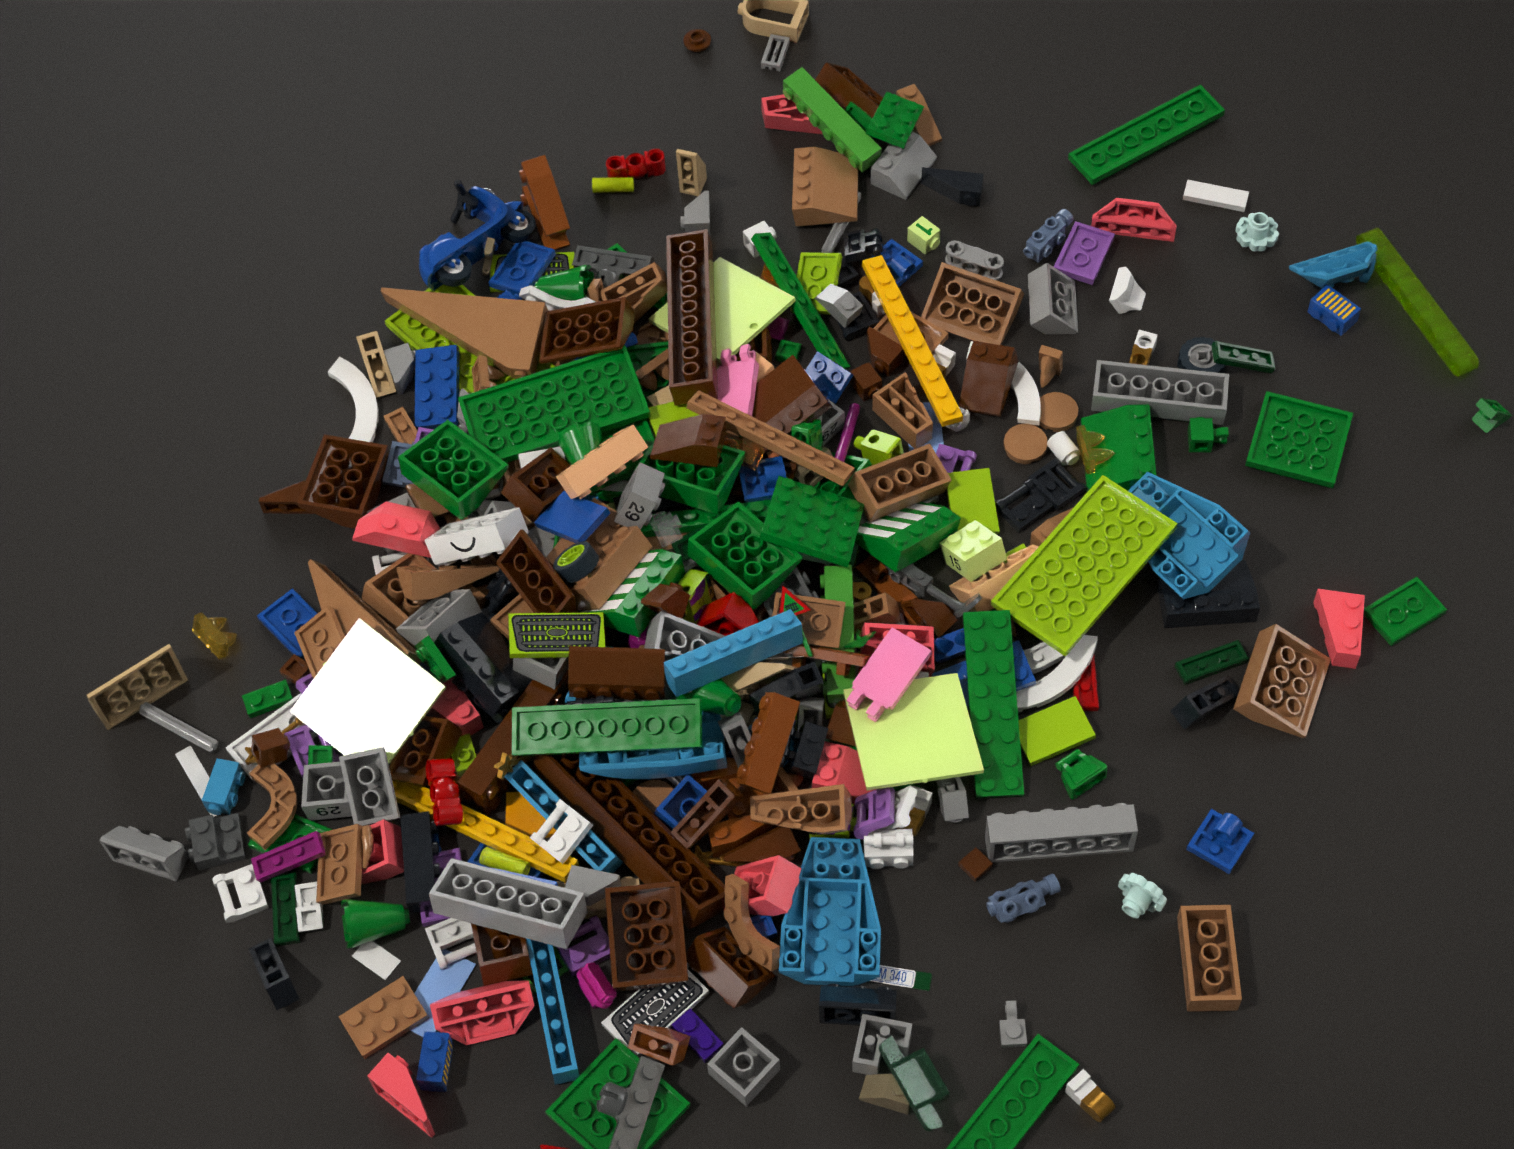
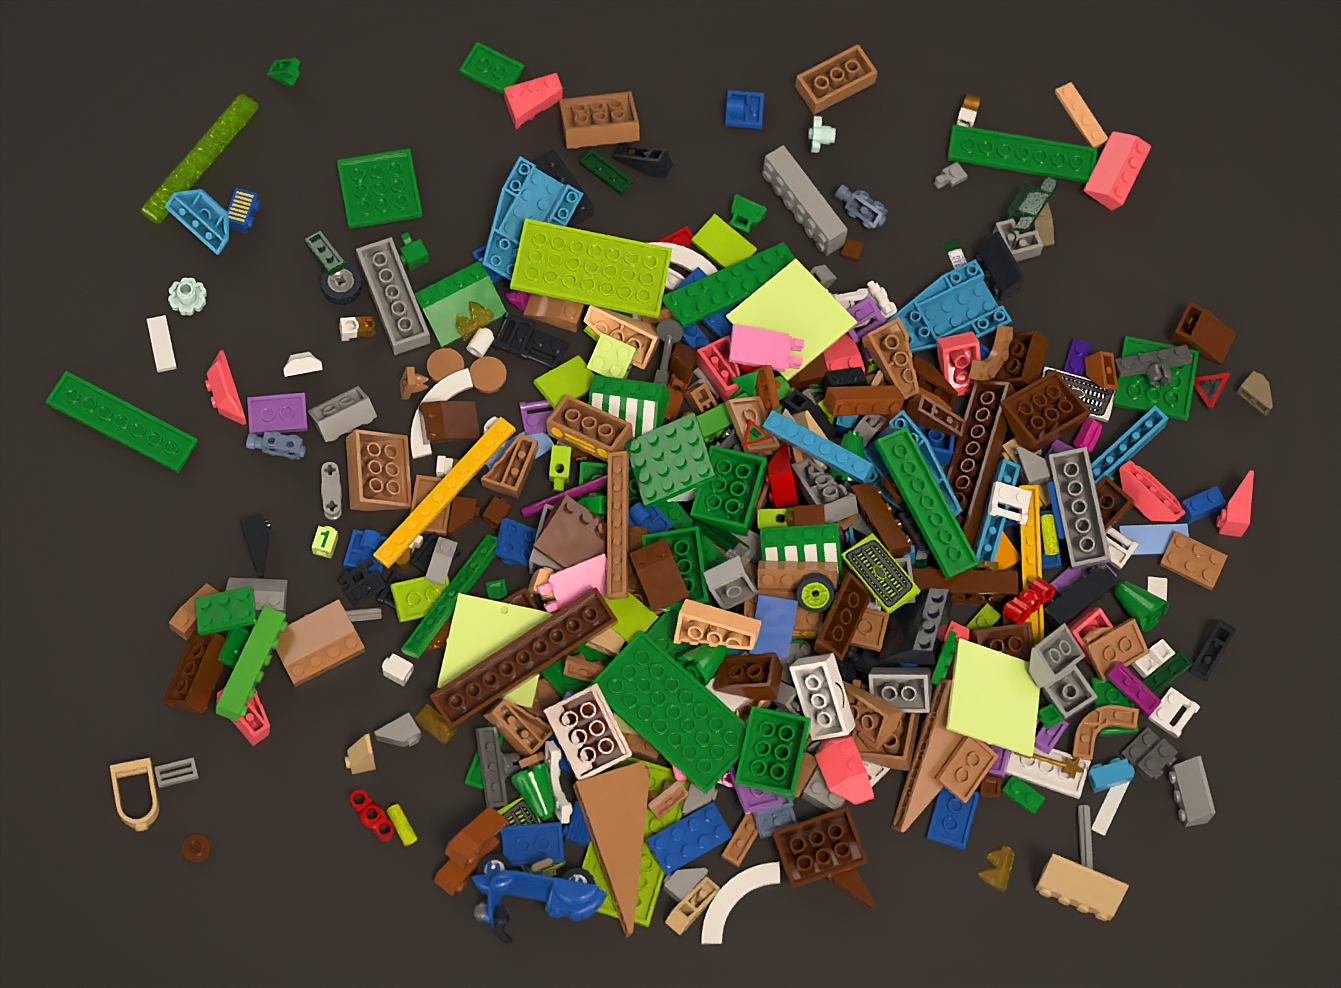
camera: 130 degrees left, 10 degrees up
(270, 747) = (1067, 751): reddish brown brick -> none
(743, 1066) = (1083, 313): light grey brick -> none

